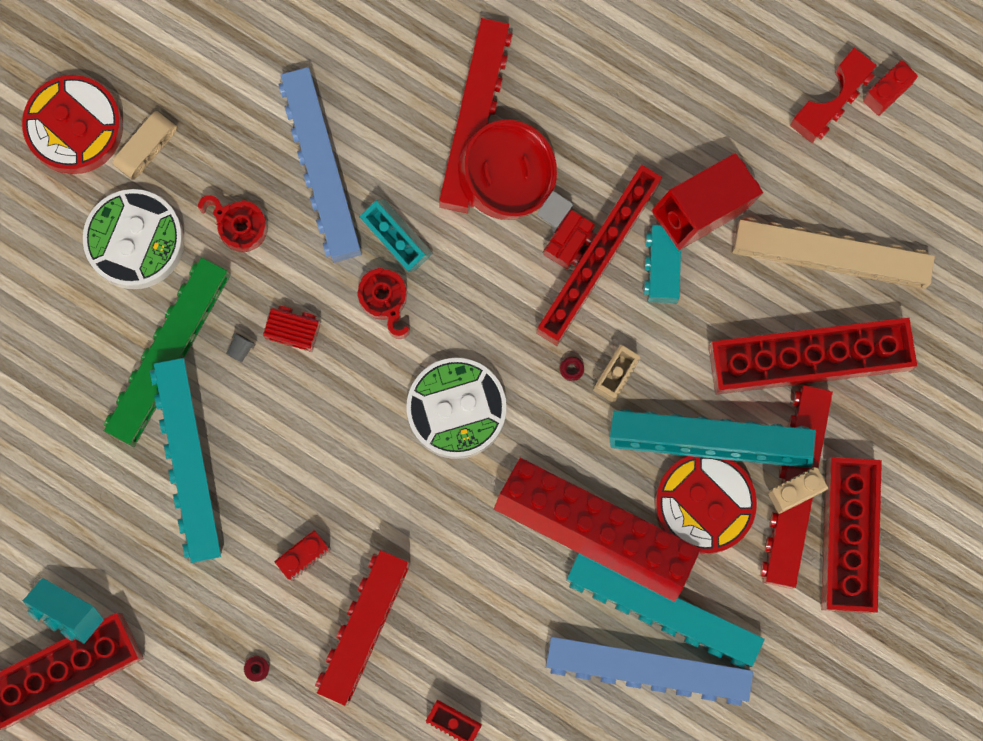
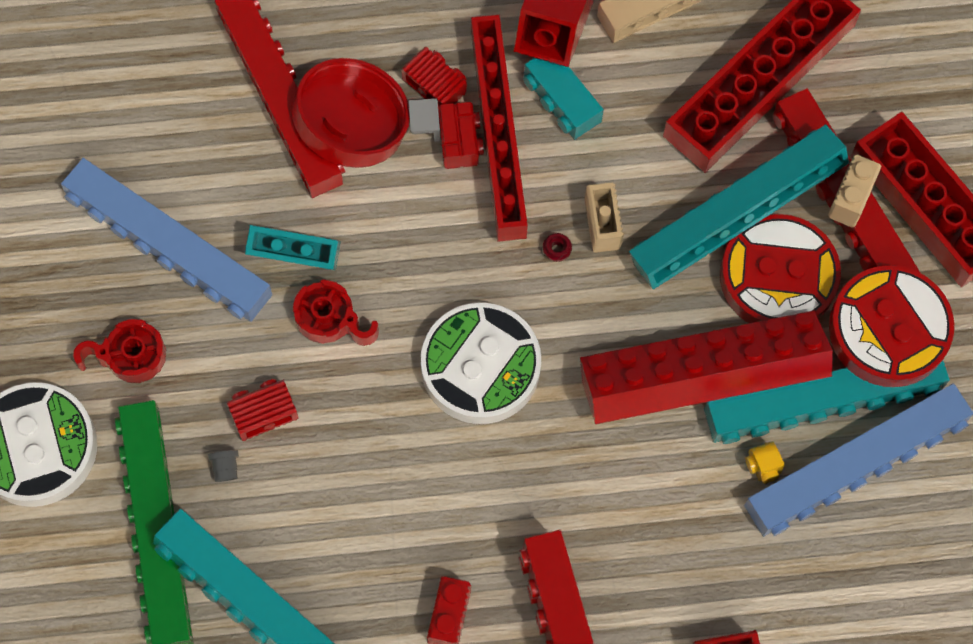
camera: 40 degrees left, 10 degrees down
(585, 187) = (434, 78): none -> red brick
(585, 621) = (765, 462): none -> yellow plate
(742, 600) = (891, 326): none -> piece

